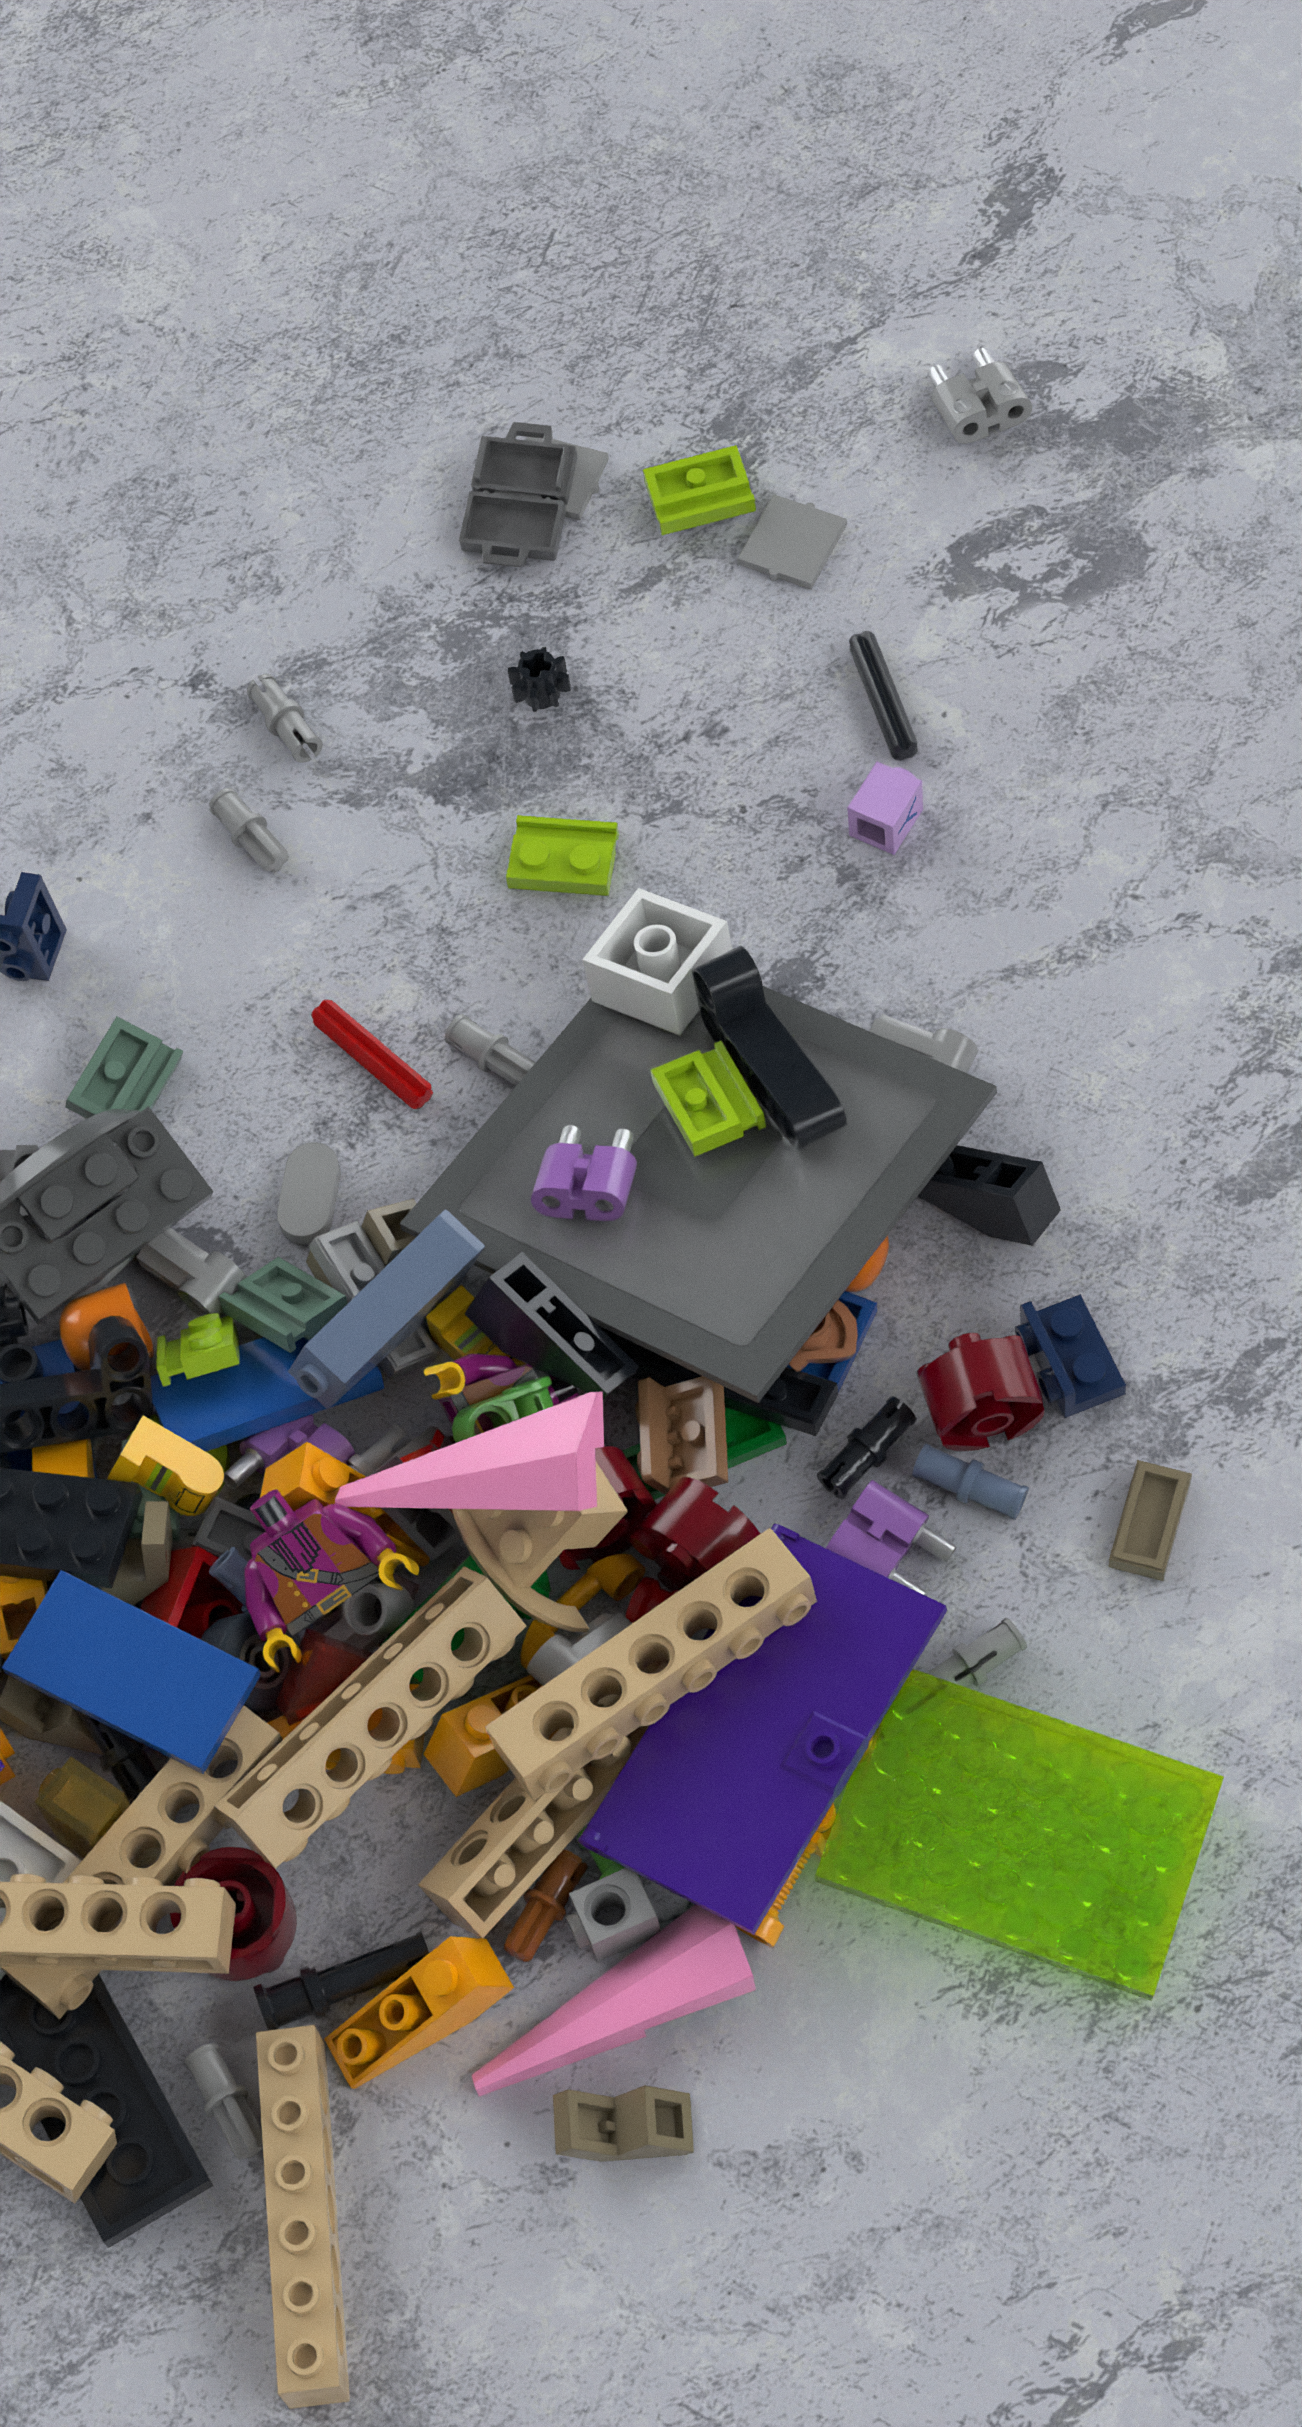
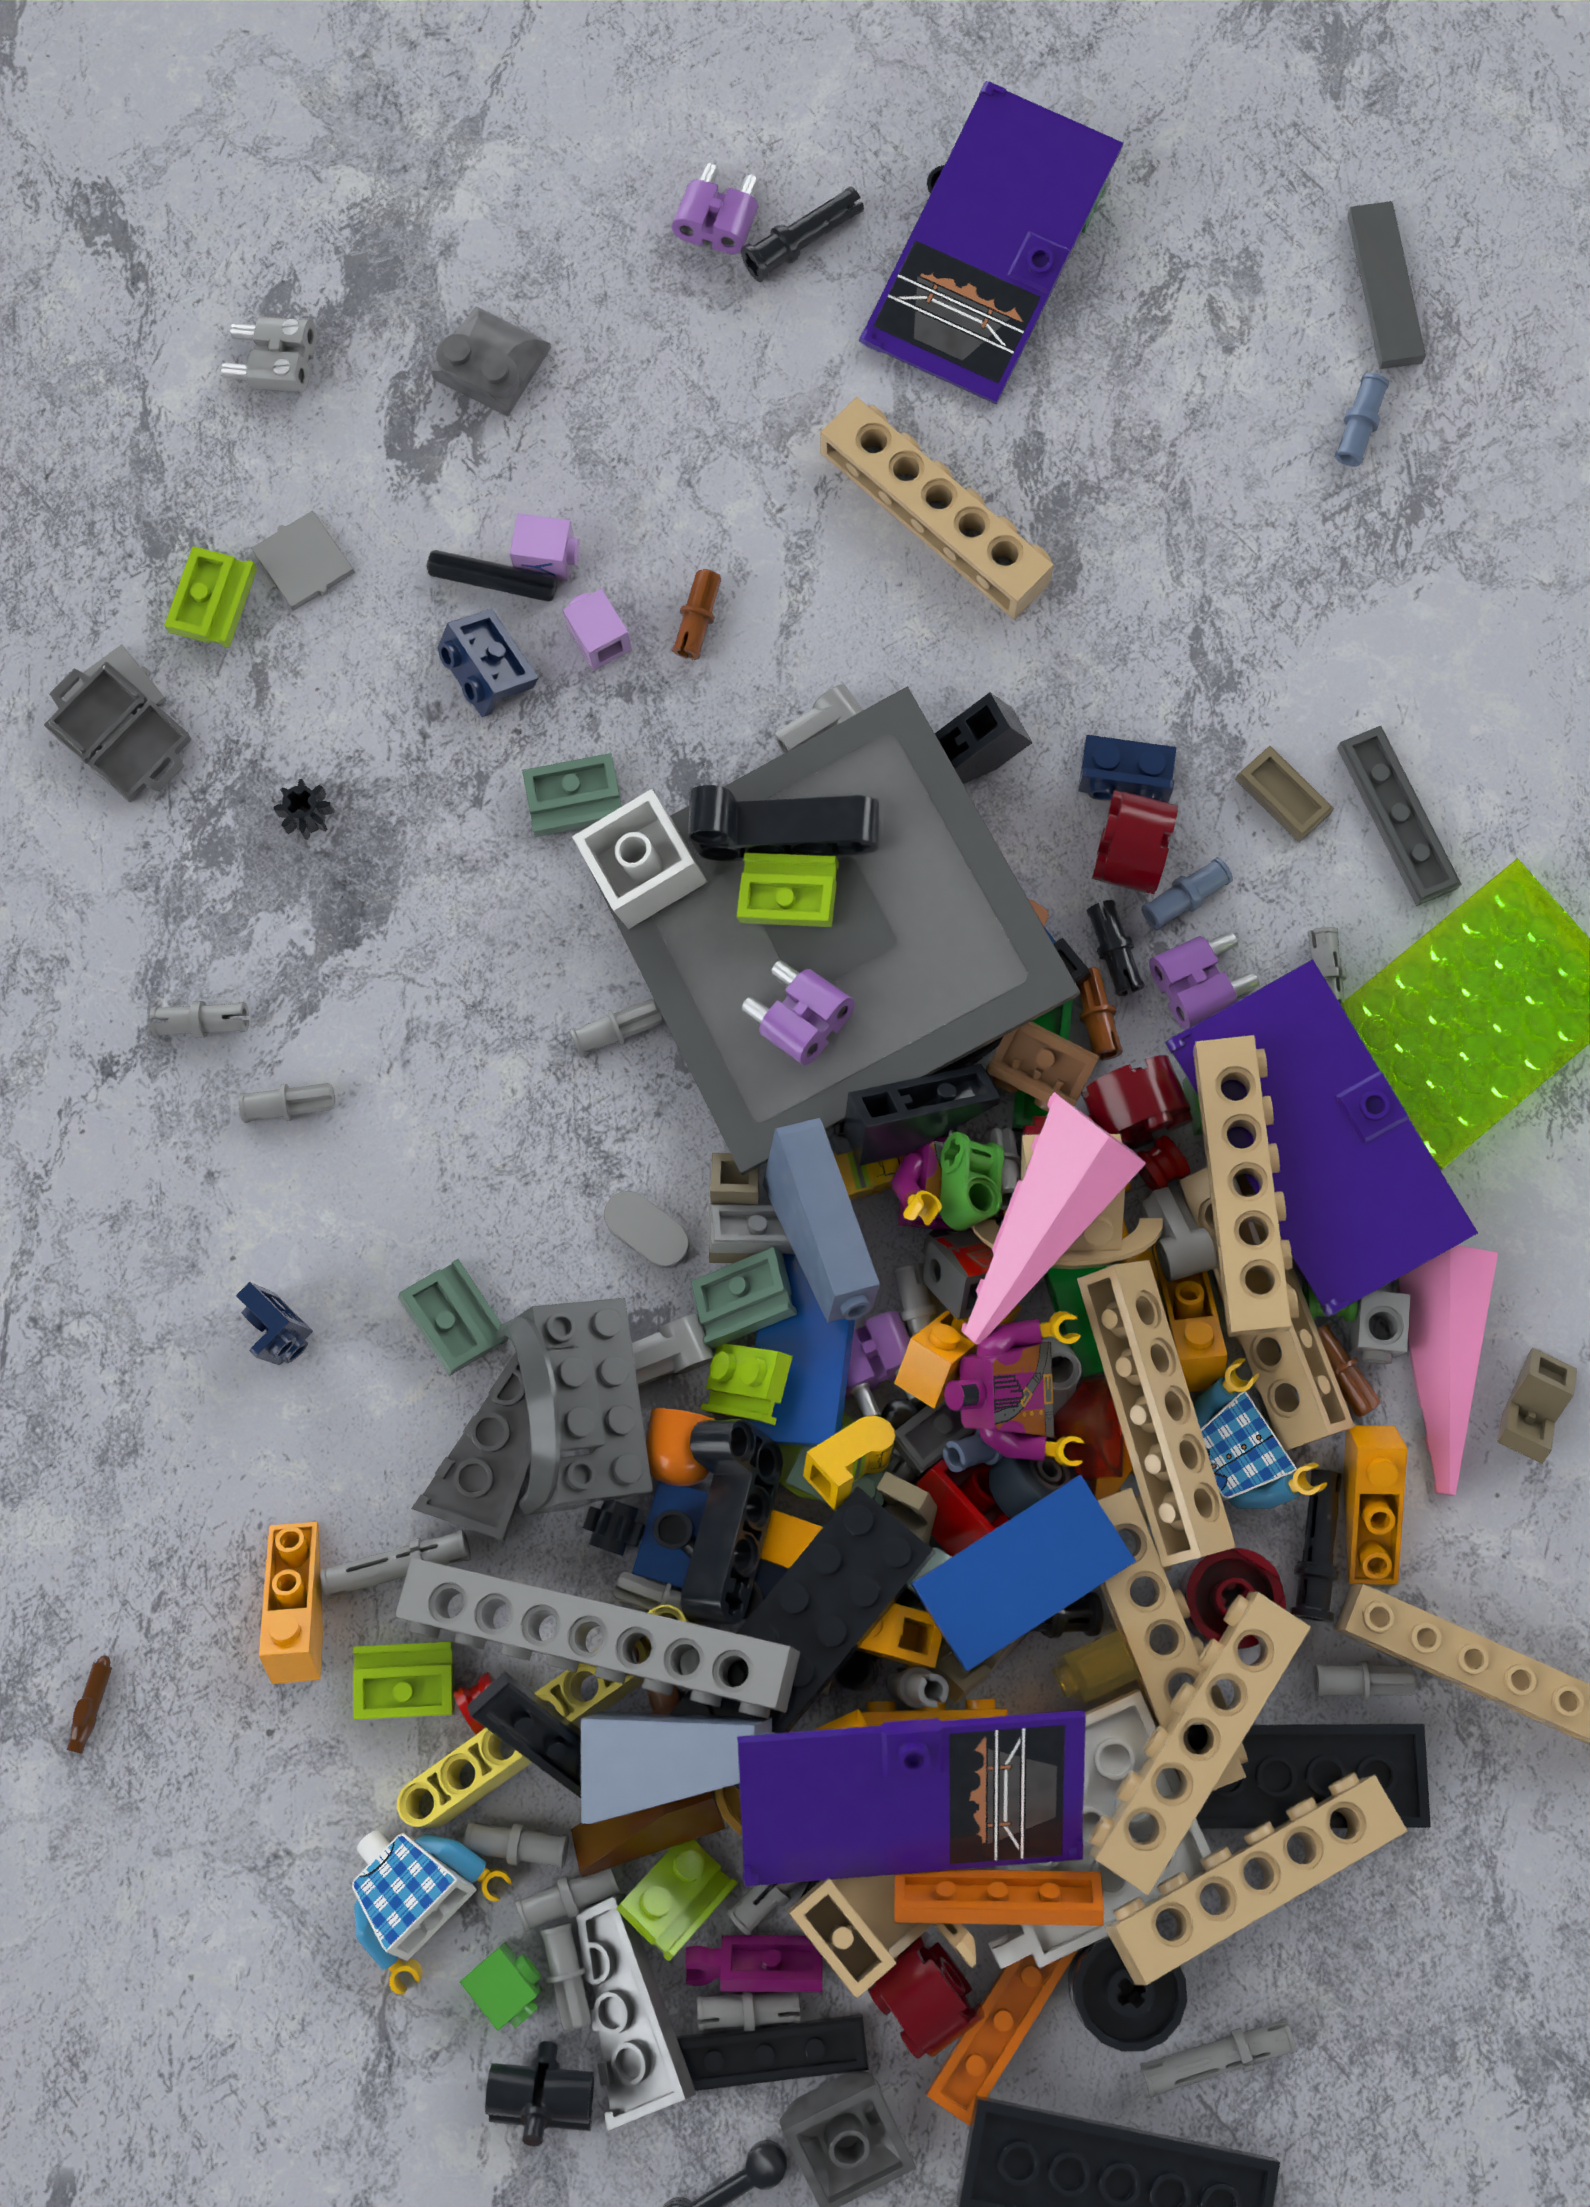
camera: 65 degrees left, 15 degrees up
(372, 1054) = (554, 1117): red axle -> none
(396, 1840) = (1244, 1451): none -> torso
(562, 855) = (471, 881): lime plate -> none
(705, 879) = (571, 794): none -> sand green plate
(781, 1469) = (1099, 1018): none -> dark orange axle
(792, 737) = (485, 660): none -> dark blue bracket
(939, 716) = (544, 545): none -> lavender brick
(963, 883) = (697, 614): none -> dark orange axle
(1107, 567) = (489, 360): none -> flat silver slope
(1196, 1139) = (908, 501): none -> tan brick
(1203, 1645) = (1398, 815): none -> dark grey tile

